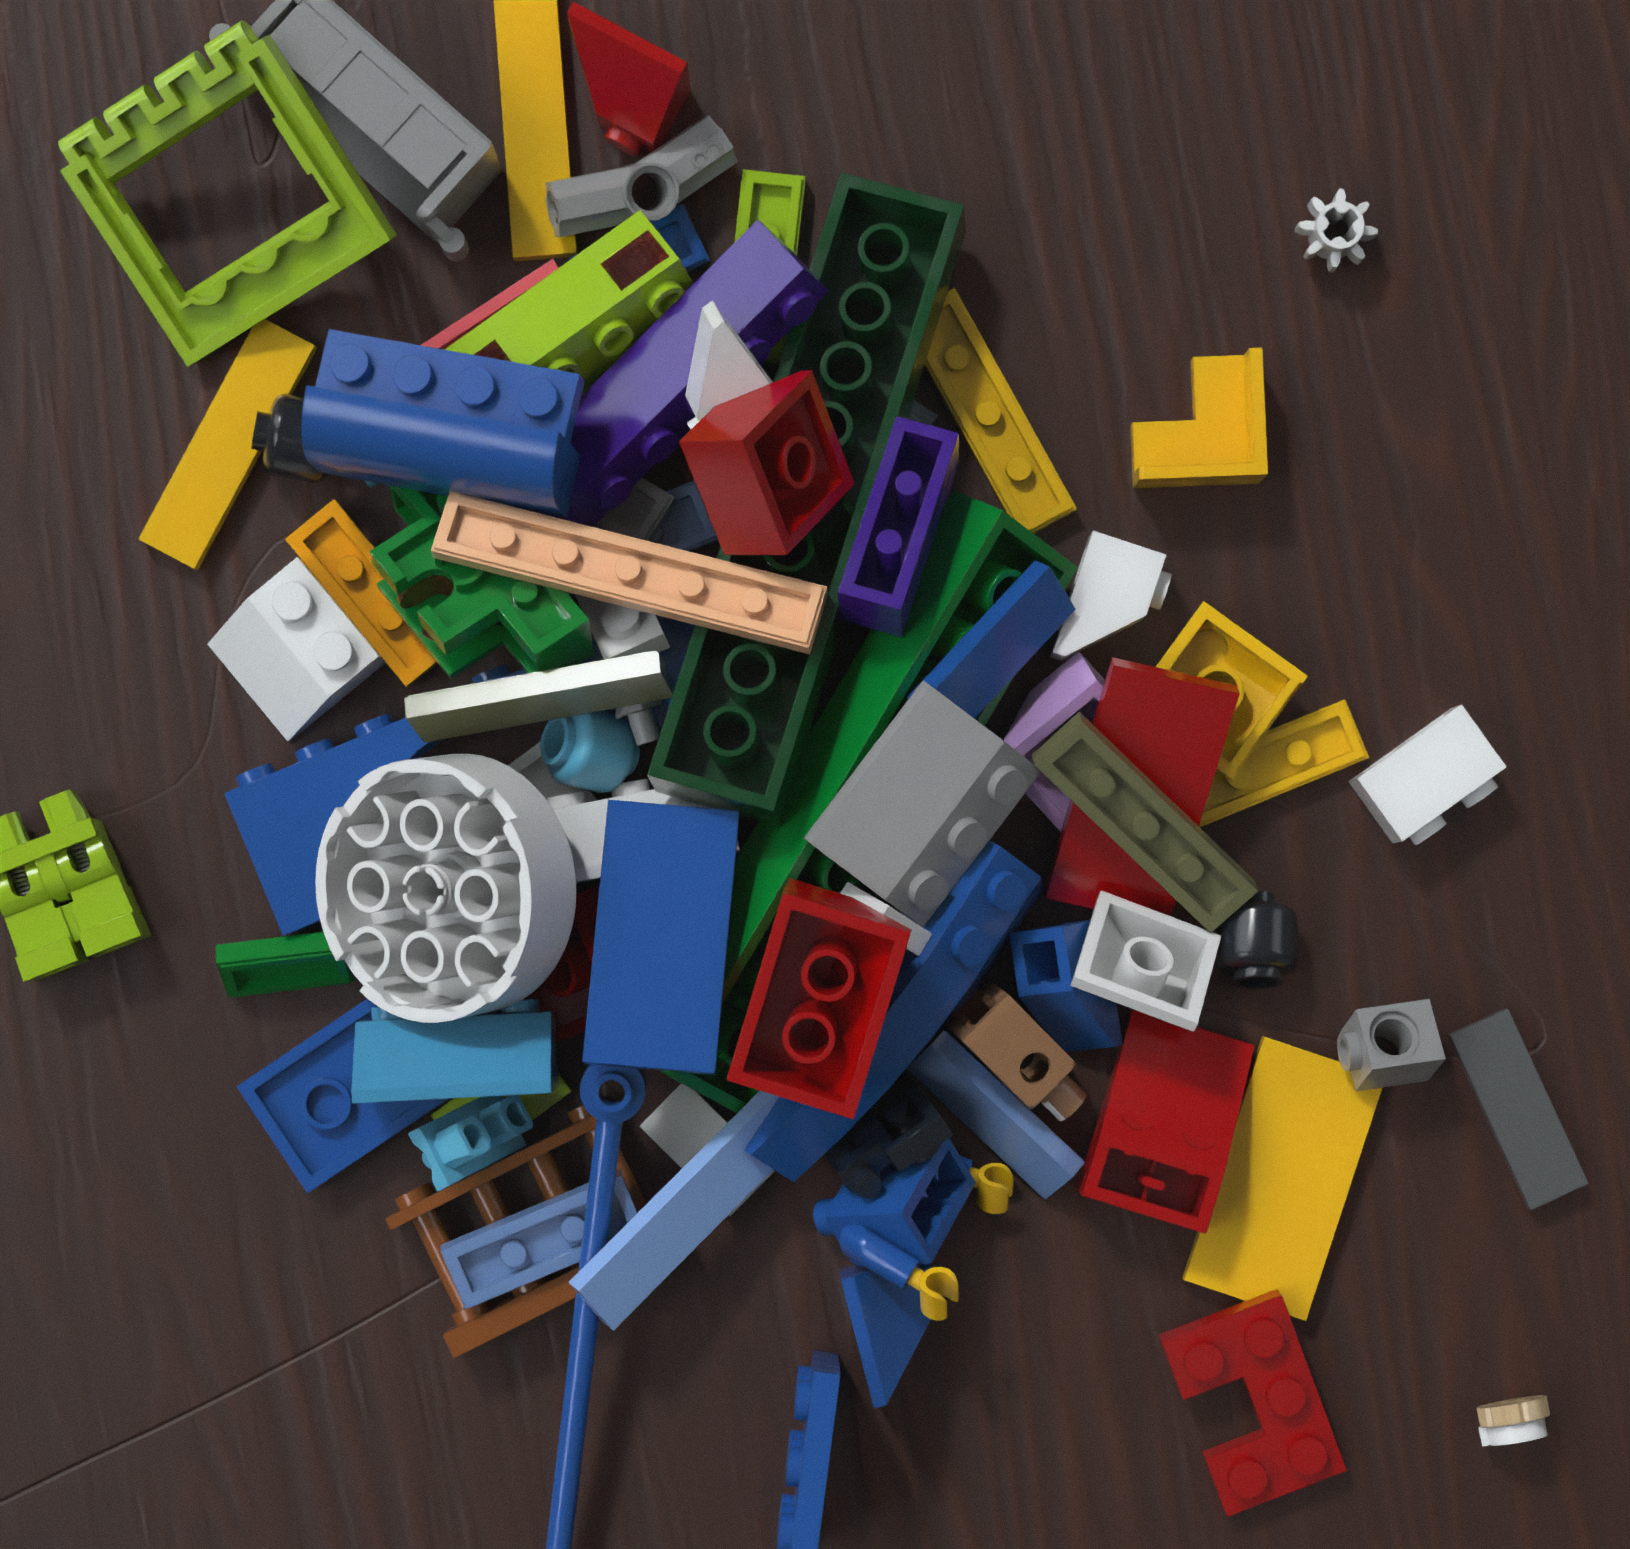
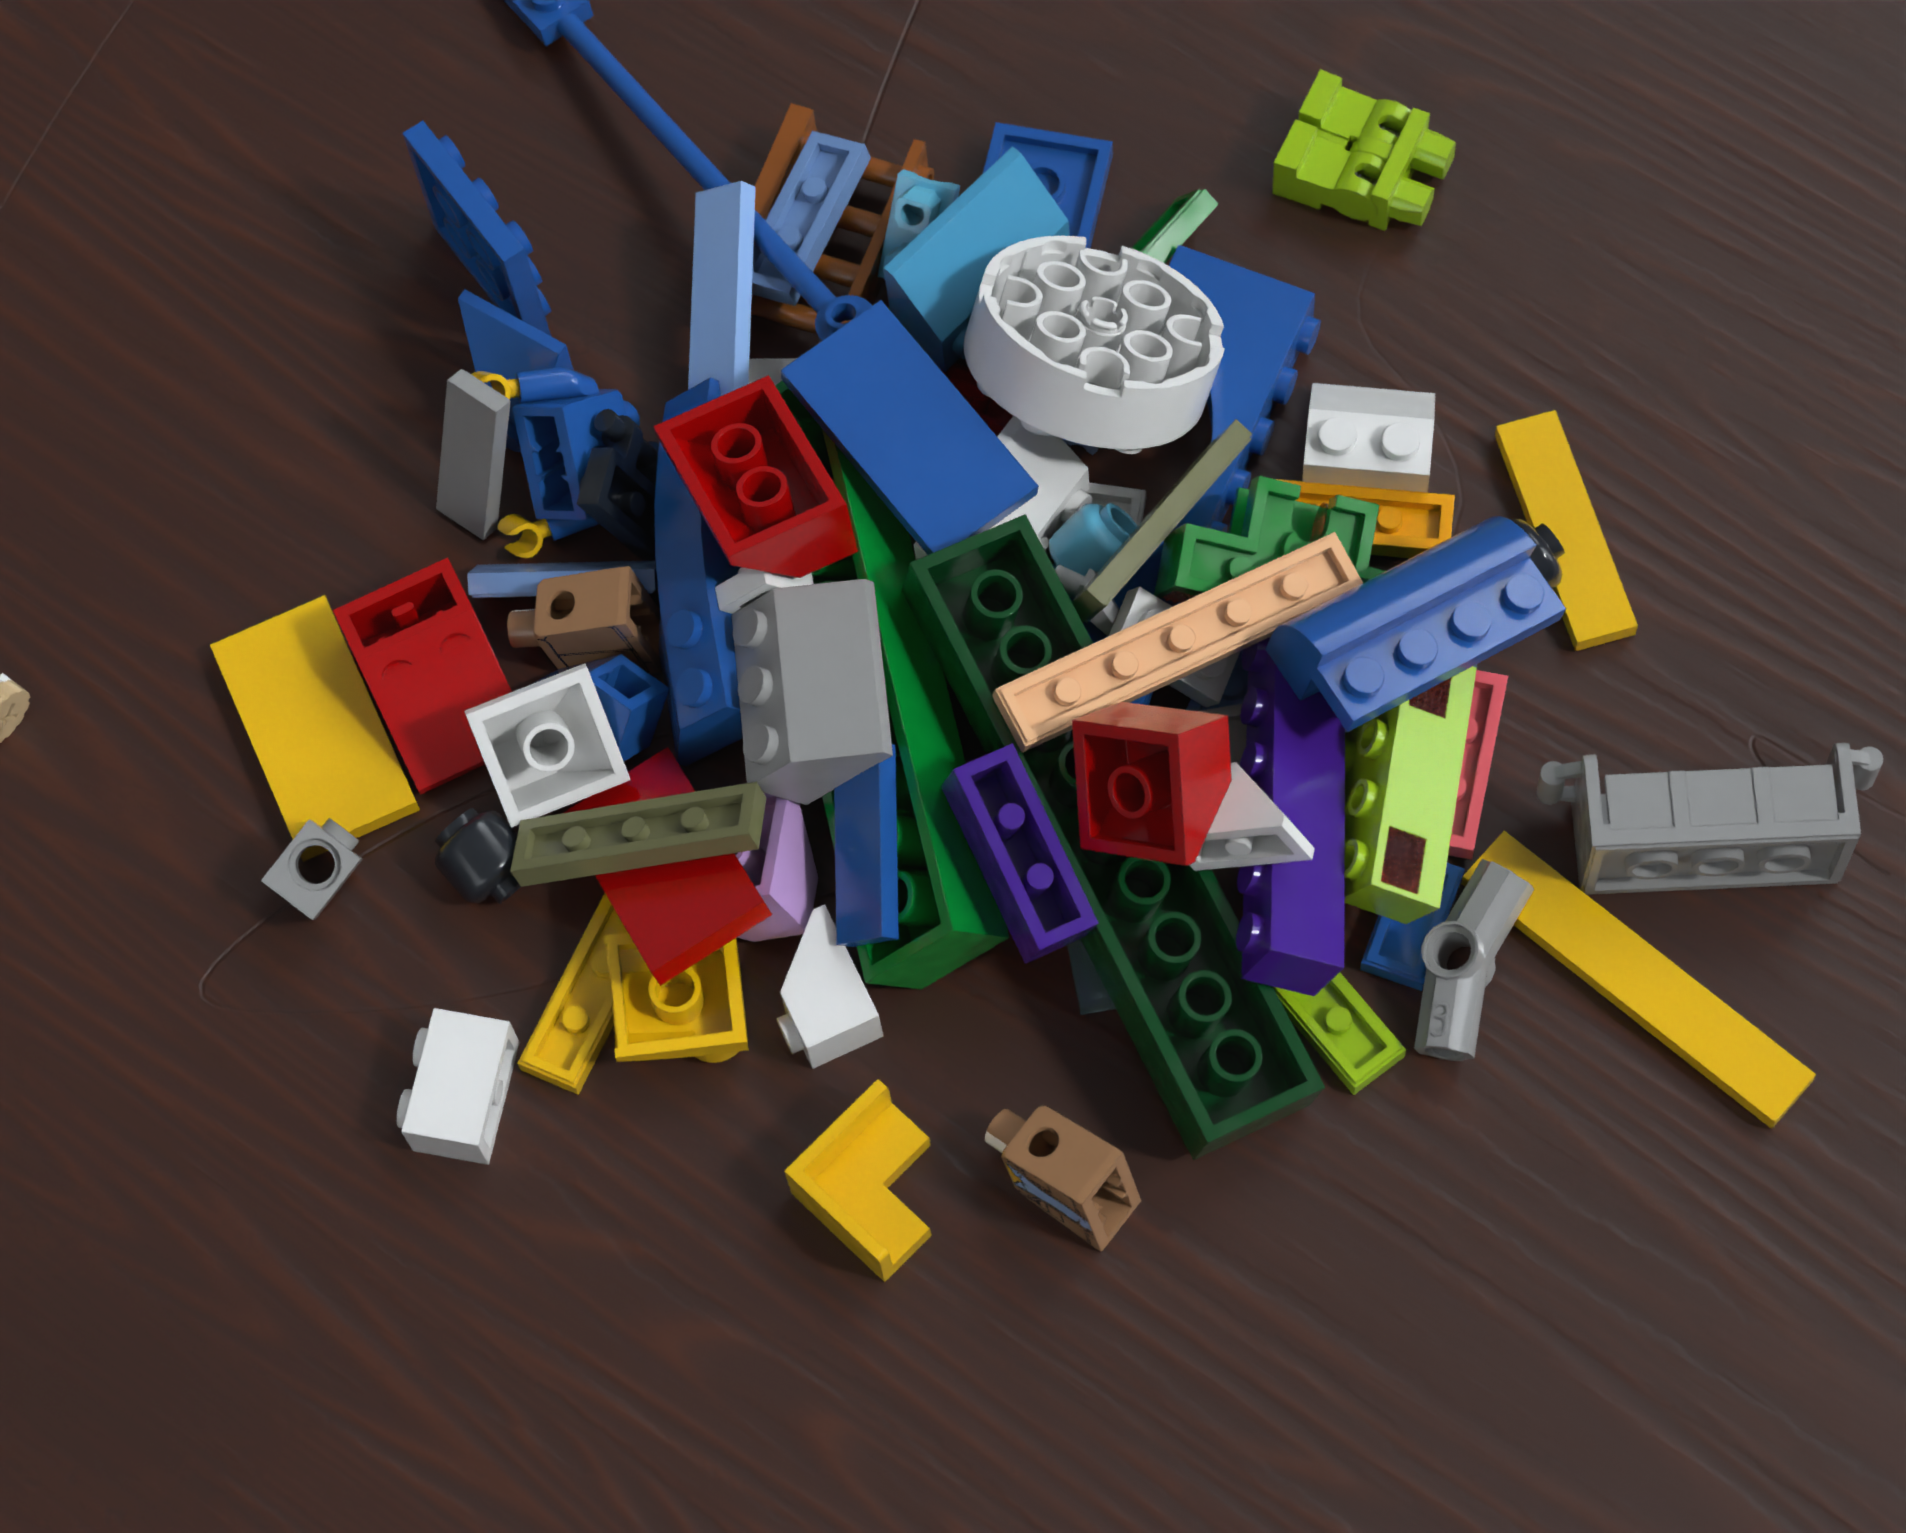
camera: 150 degrees right, 20 degrees down
(270, 273) = (1660, 632): lime hinge -> none
(630, 81) = (1557, 1018): red slope -> none
(986, 1266) = (472, 454): none -> light grey tile
(993, 421) = (1035, 1048): yellow tile -> none
(1063, 273) = (1066, 1172): none -> medium nougat torso
(1263, 1349) = (155, 570): red plate -> none
(1333, 214) = (896, 1413): white gear -> none
(1517, 1109) = (179, 923): dark grey tile -> none

